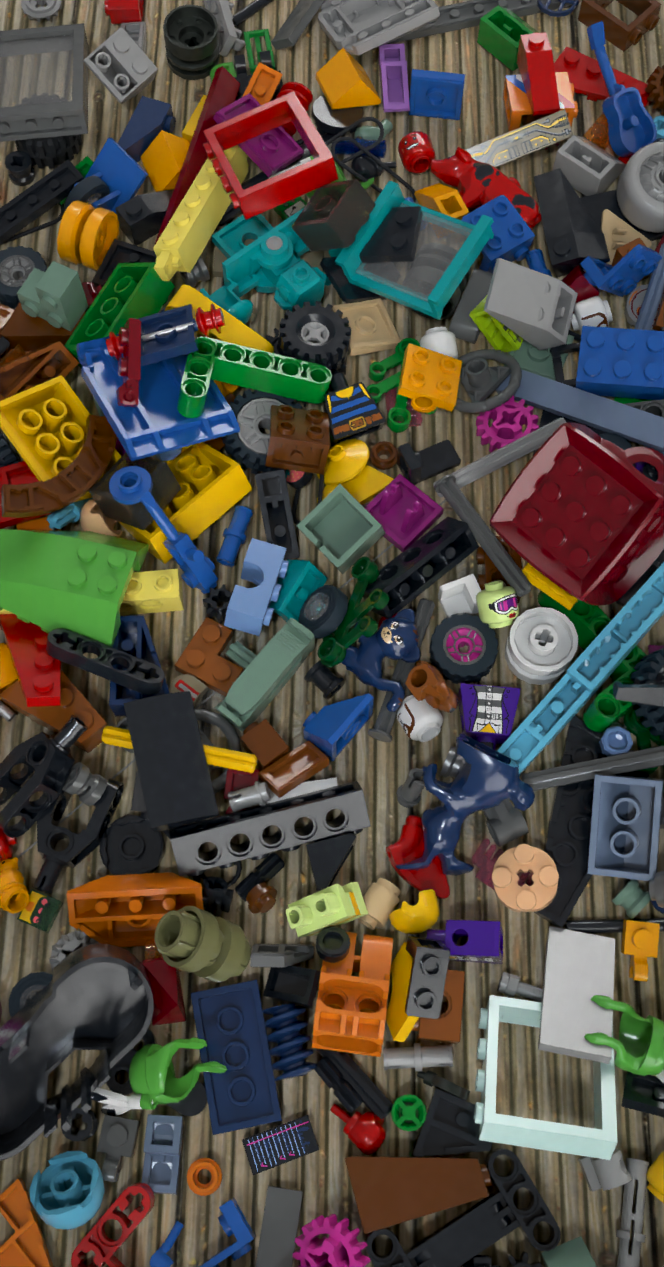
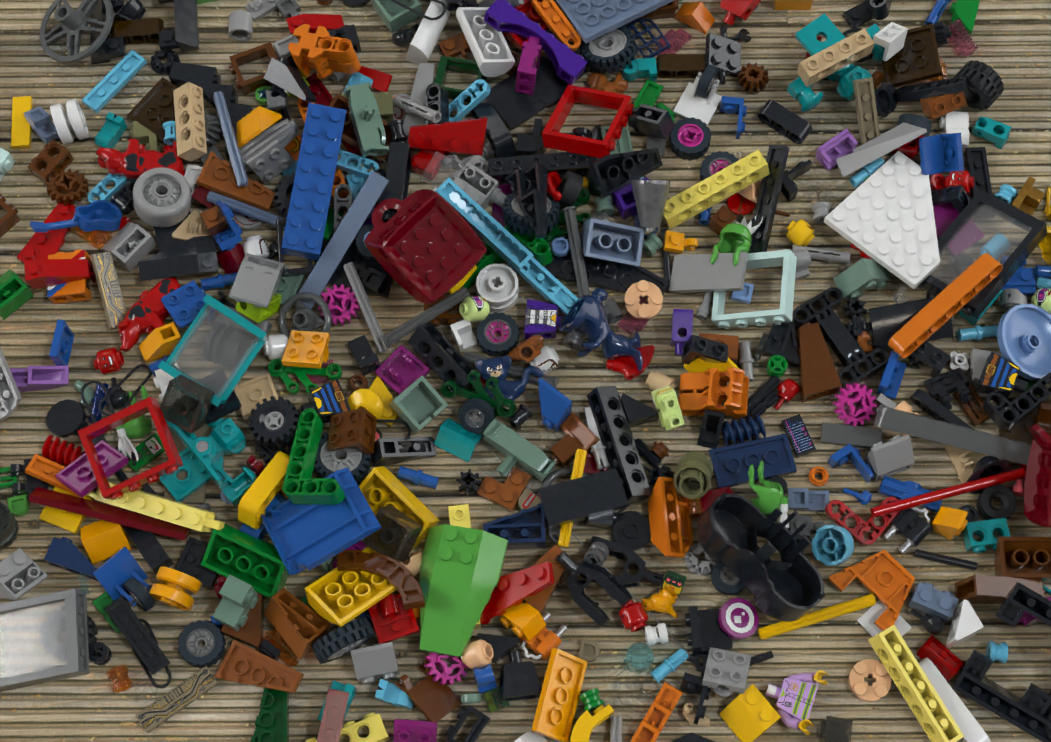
camera: 90 degrees left, 0 degrees up
(103, 664) = (528, 518): black beam -> none
(130, 364) = (310, 528): dark red hinge -> none
(171, 333) = (283, 509): dark blue plate -> none
(195, 565) = (436, 502): blue piece -> none
(250, 606) = (445, 452): medium blue arch -> none
(258, 321) = (254, 465): none -> dark red plate
(280, 954) = (694, 437): dark grey tile -> none
(332, 944) = (688, 404): black tile -> none
(346, 83) = (41, 411): light orange slope -> none
(395, 237) = (200, 366): black wing -> none
(410, 793) = (592, 366): dark grey pin -> none
(419, 917) = (667, 358): yellow hair -> none
(551, 1065) = (745, 295): none -> light blue tile

